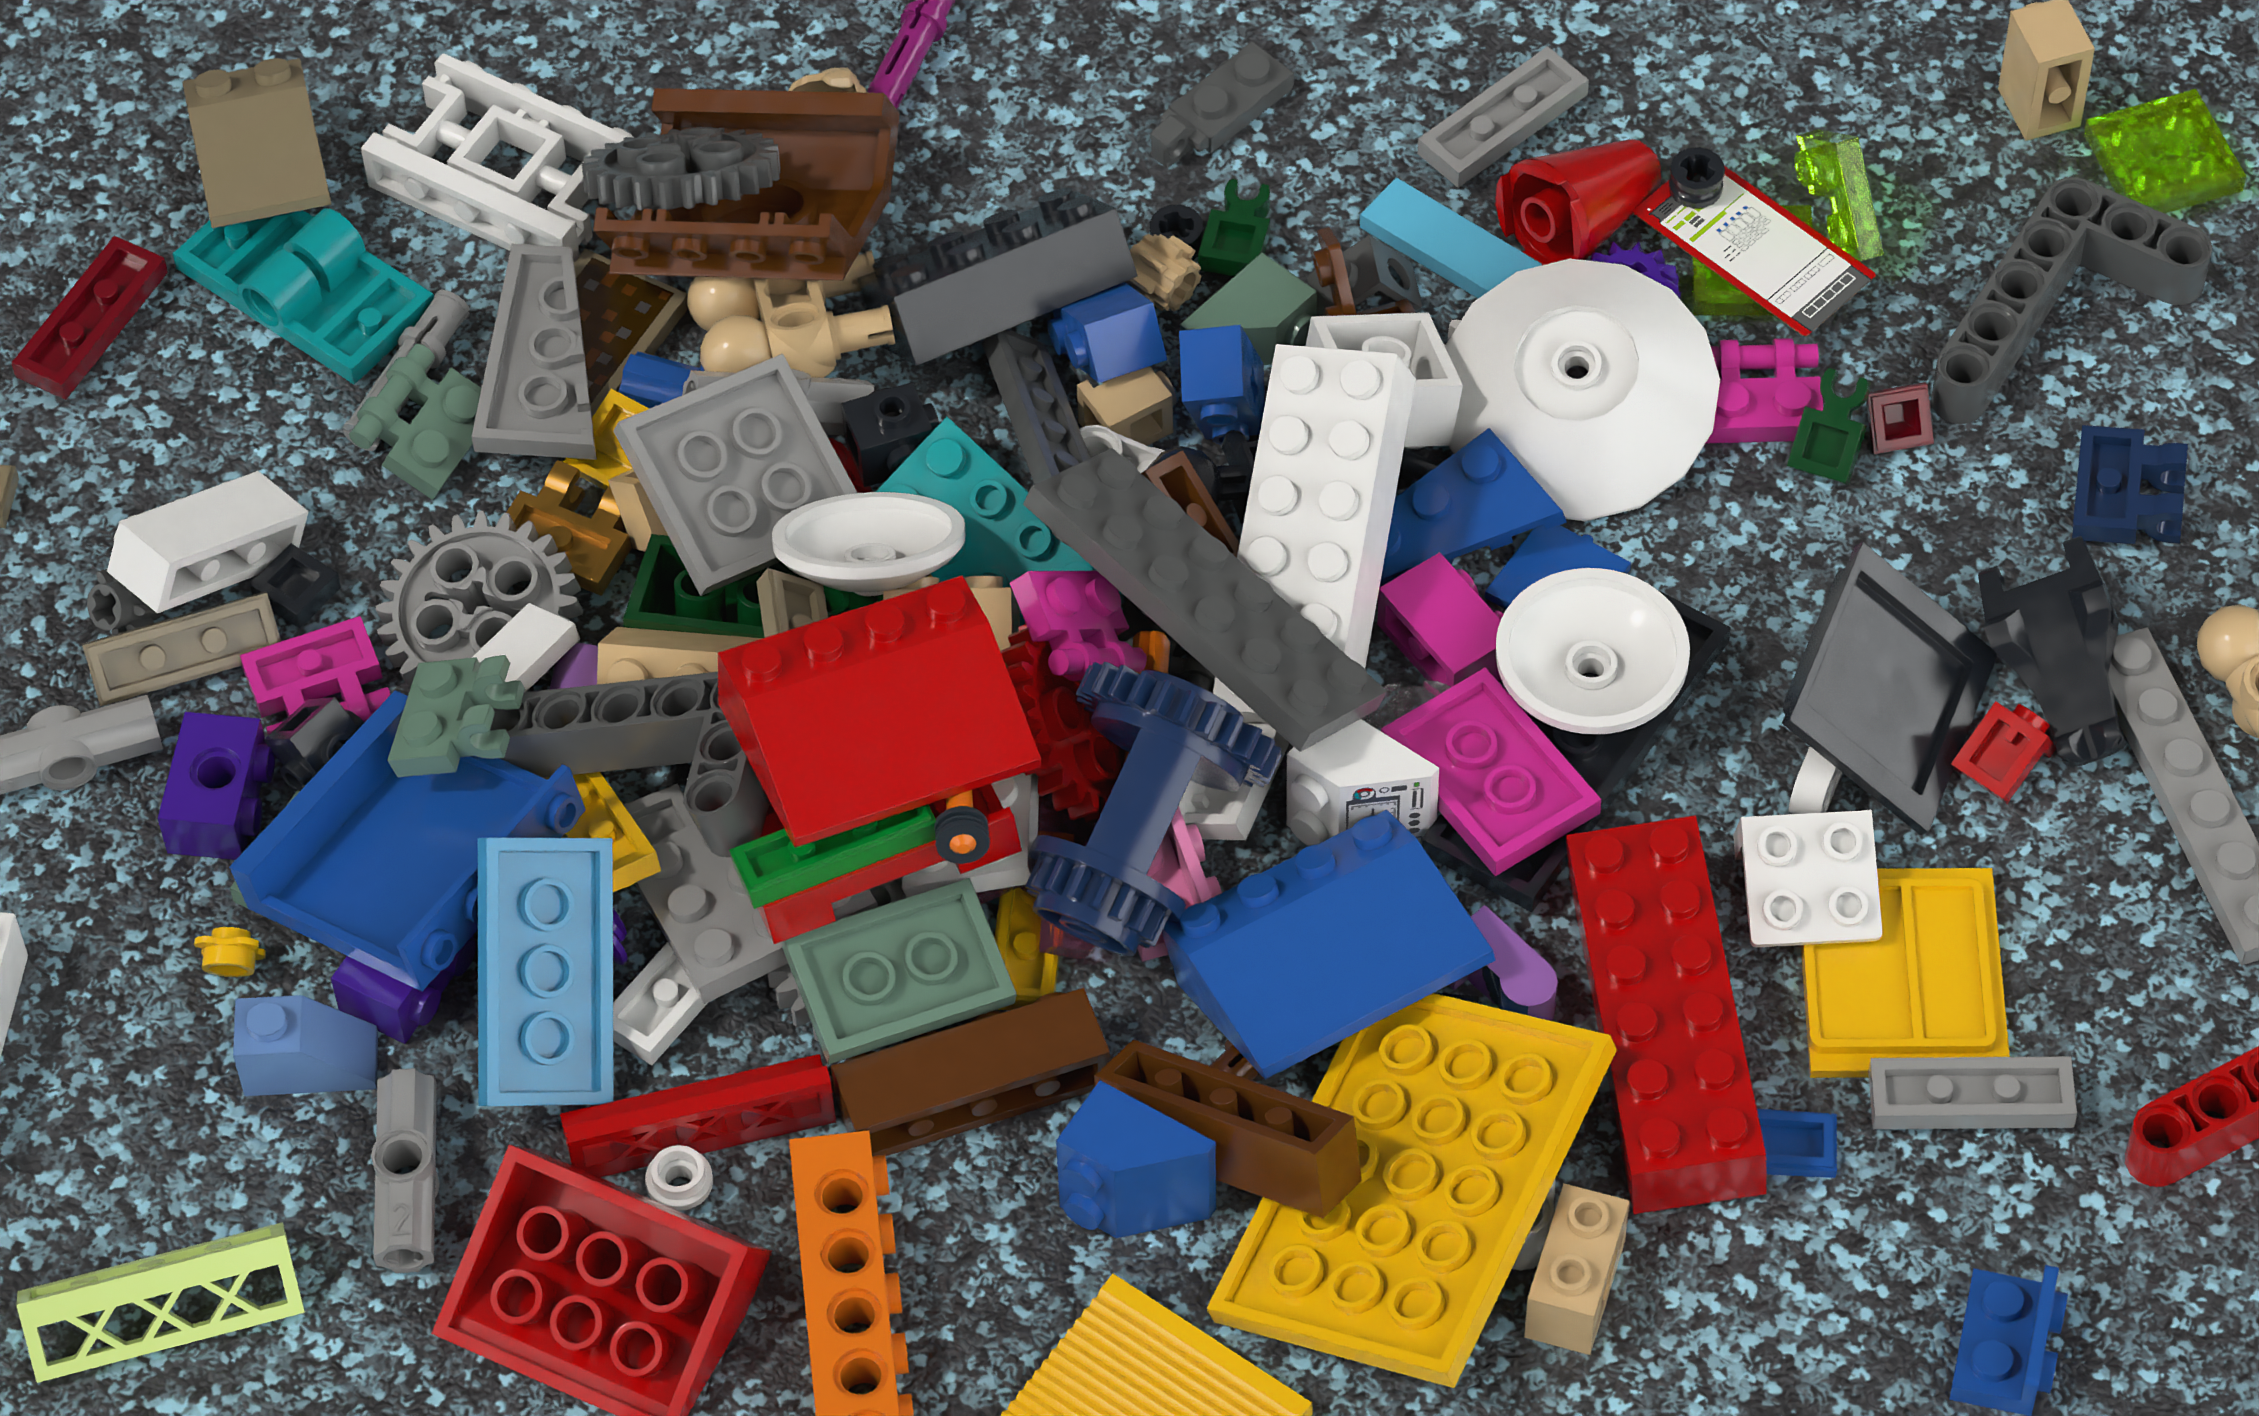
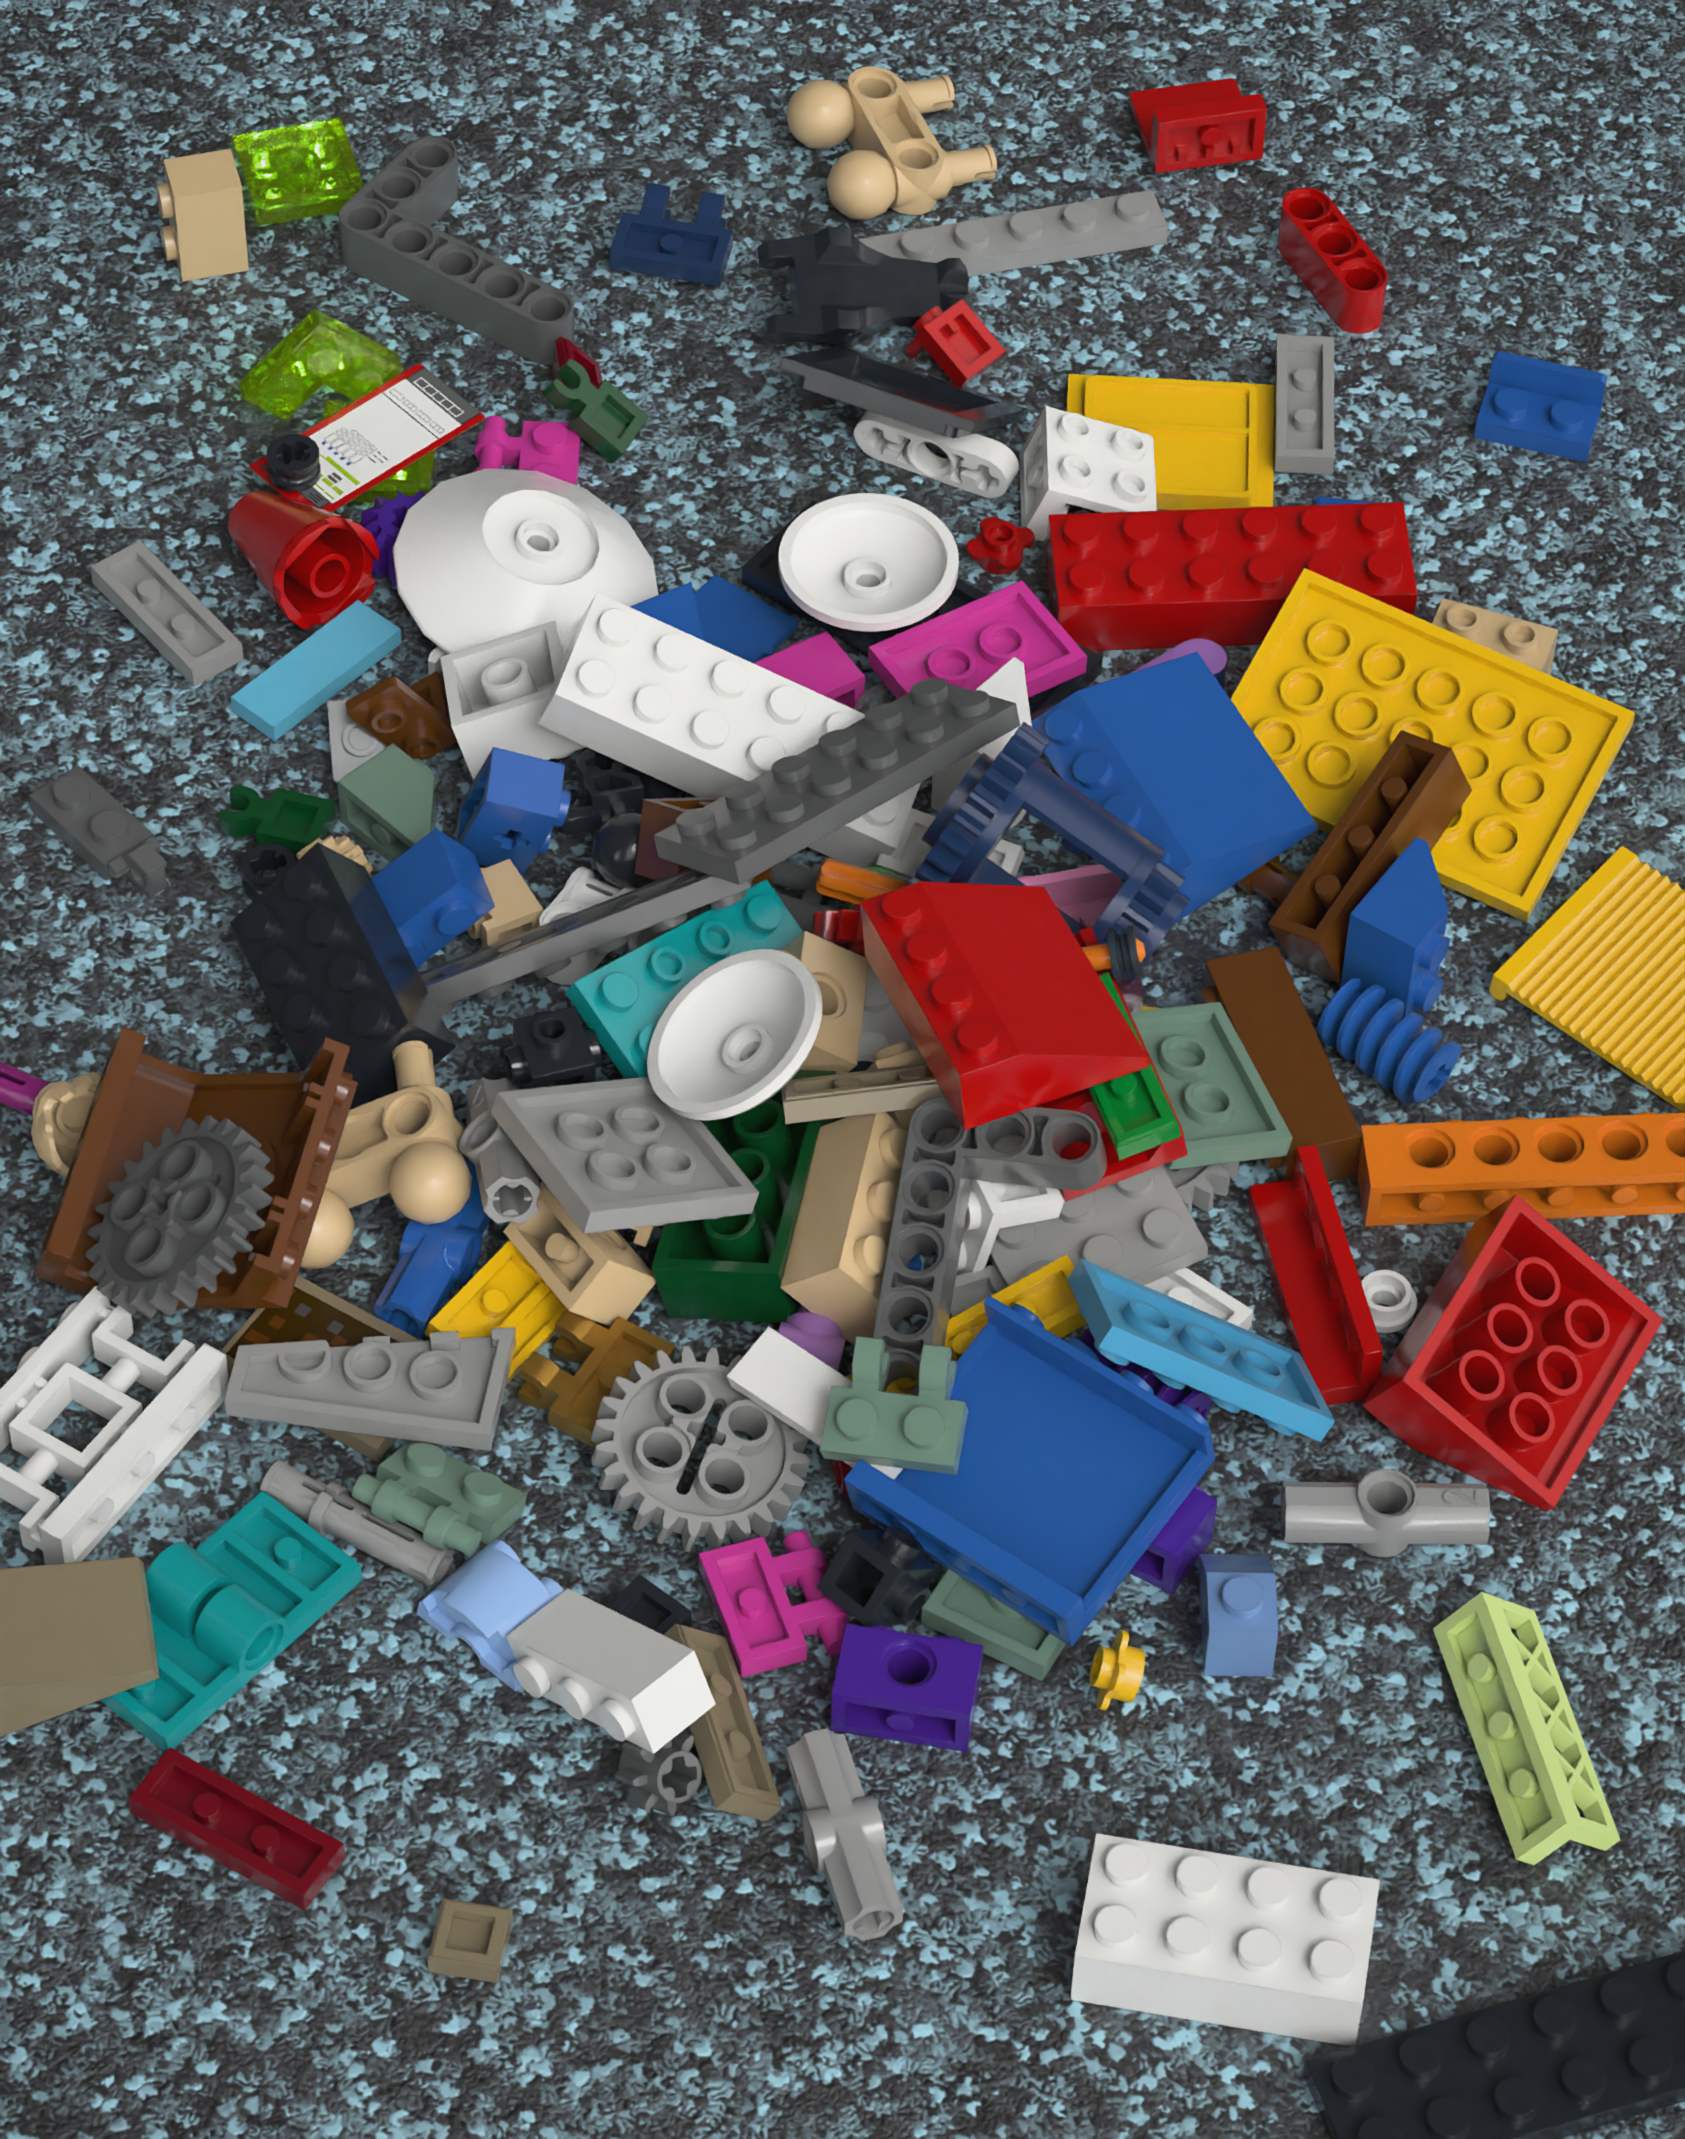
camera: 90 degrees left, 5 degrees down
(316, 468) = (486, 1603): none -> light blue cylinder
(1000, 1169) = (1384, 1045): none -> blue piece
(1071, 609) = (838, 885): dark pink plate -> none
(1714, 823) = (1000, 546): none -> red plate

